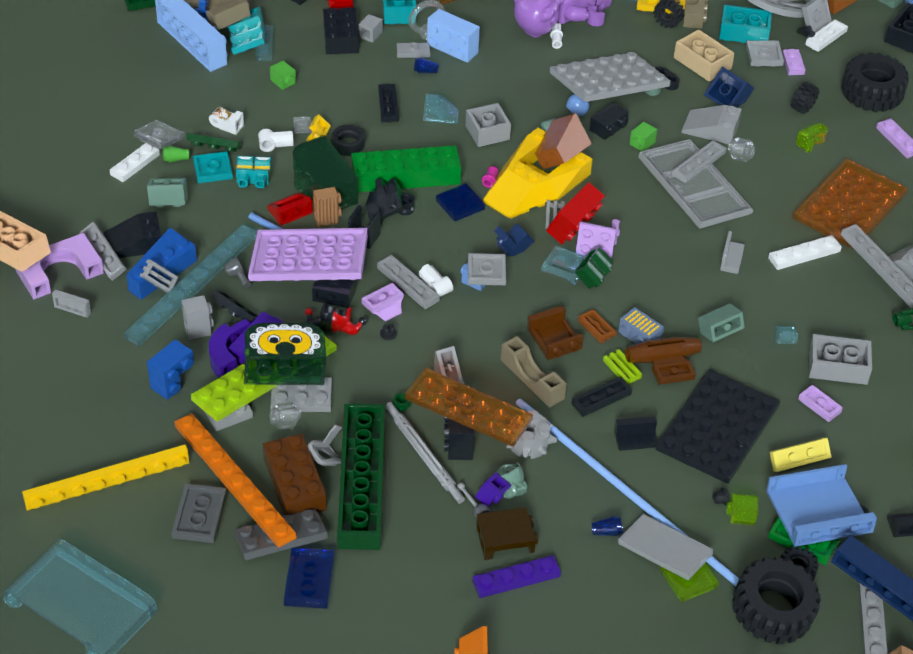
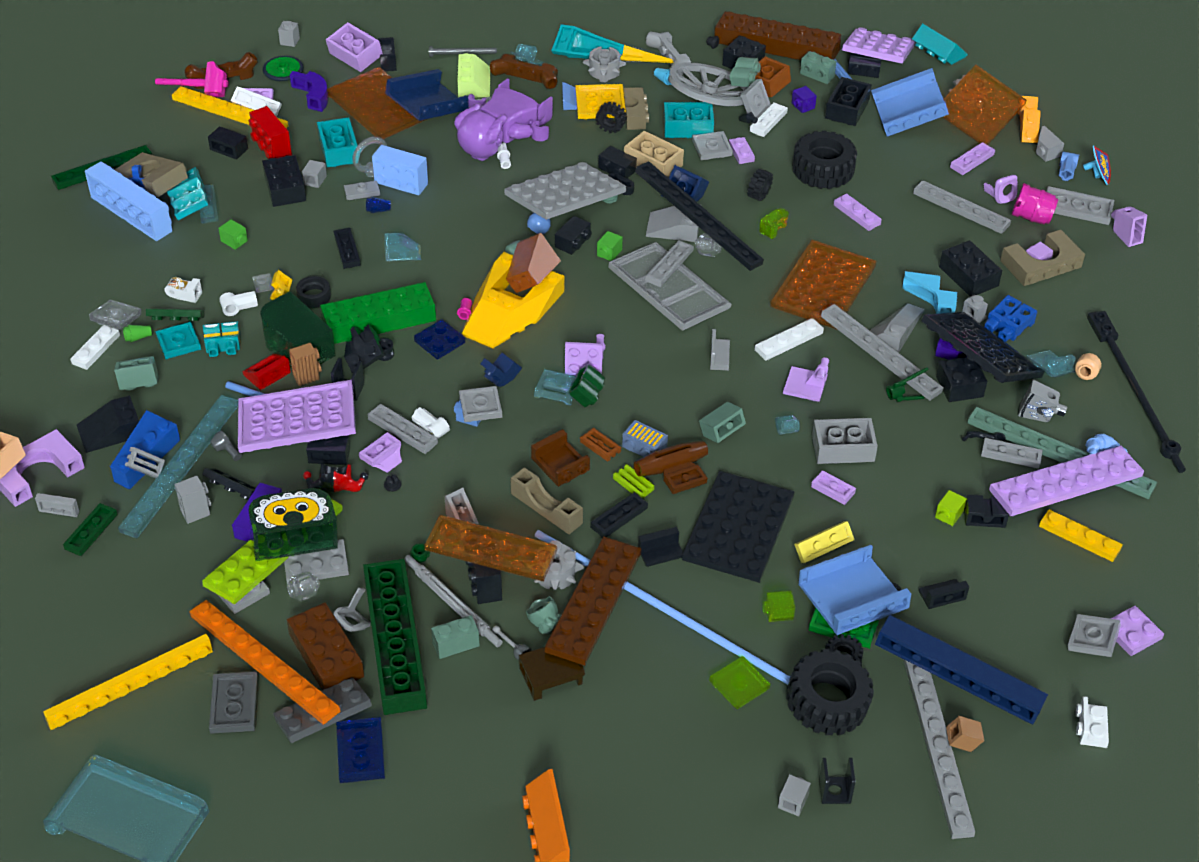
camera: 10 degrees left, 0 degrees up
(97, 331) = (90, 529): none -> dark green plate
(111, 262) = (90, 454): light grey tile -> none
(167, 366) = (172, 556): blue brick -> none
(220, 358) = (225, 538): dark purple arch -> none
(420, 486) = (455, 637): none -> sand green brick
(488, 124) = (453, 256): light grey brick -> none
(493, 490) = (530, 628): dark purple brick -> none
(516, 576) = (569, 712): dark purple plate -> none
(555, 205) = (535, 328): light grey tile -> none
(559, 474) = (593, 601): none -> reddish brown plate
(577, 210) = (559, 331): red brick -> none
(608, 527) = (650, 646): clear blue cone -> none
(665, 547) = (711, 656): light grey tile -> none
(666, 56) = (616, 161): none -> black brick
(721, 496) = (756, 596): black piece -> none
(737, 119) = (699, 216): none -> black plate
(813, 297) = (807, 383): none -> lavender plate
(866, 20) = (804, 99): none -> dark purple brick

